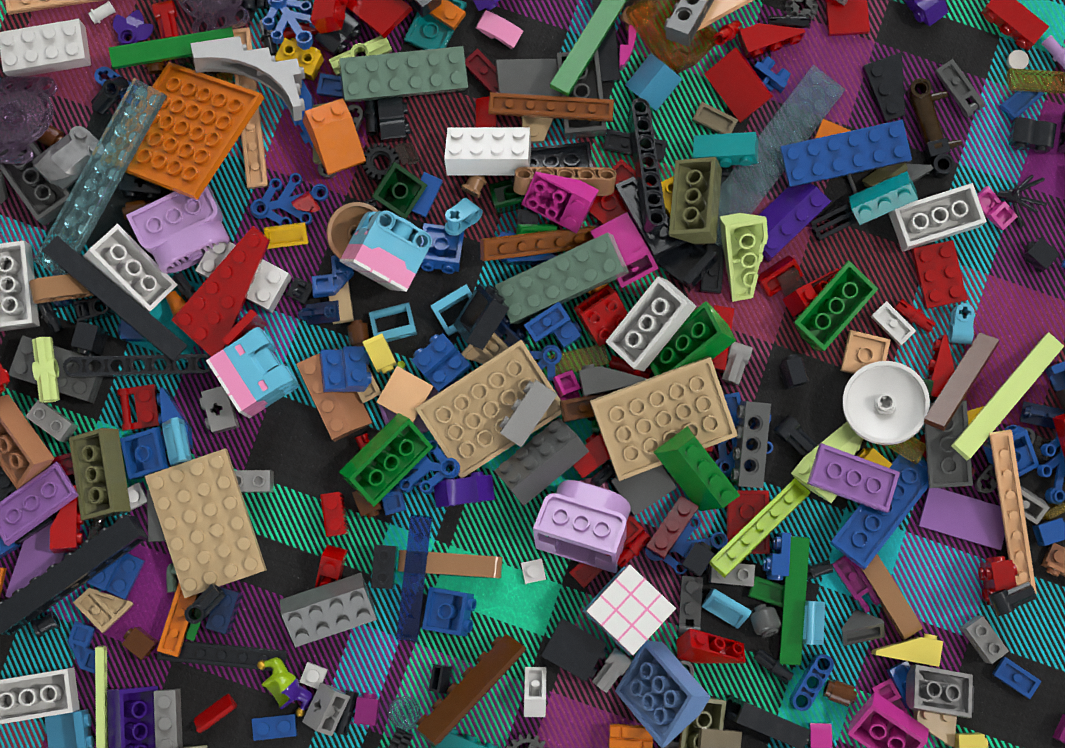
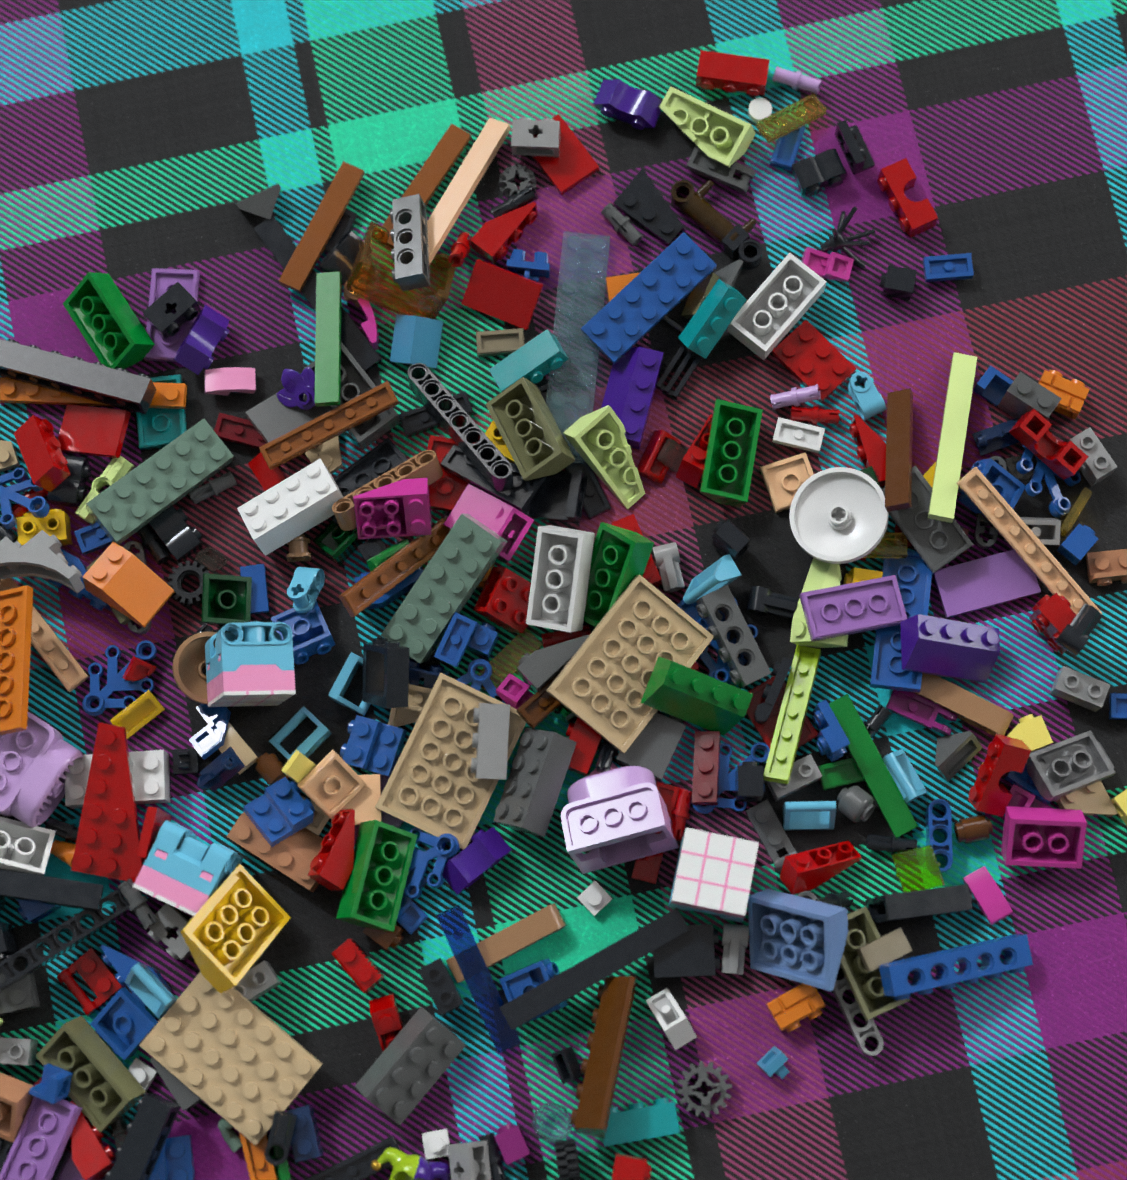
camera: 25 degrees left, 5 degrees down
(68, 467) = (53, 1085): none -> blue panel
(204, 374) = (138, 904): none -> dark grey pin
(259, 435) = (233, 929): none -> yellow slope
(364, 428) = (336, 855): none -> red slope
(393, 372) = (331, 784): none -> light nougat tile
(440, 101) = (212, 488): none -> dark grey axle
(501, 623) = (594, 969): none -> black tile
(544, 63) = (296, 386): none -> dark purple plate
(707, 682) = (837, 899): none -> black axle
(754, 502) = (772, 691): none -> black hinge
(762, 392) = (712, 578): none -> medium azure tile
(781, 697) = (918, 869): none -> clear neon green piece
(860, 85) = (622, 224): none -> dark grey pin
(894, 655) = (1002, 756): none -> red arch
(905, 550) = (948, 648): none -> dark purple slope
(909, 293) = (795, 396): none -> lavender pin
(972, 55) = (711, 129): none -> yellowish green wedge

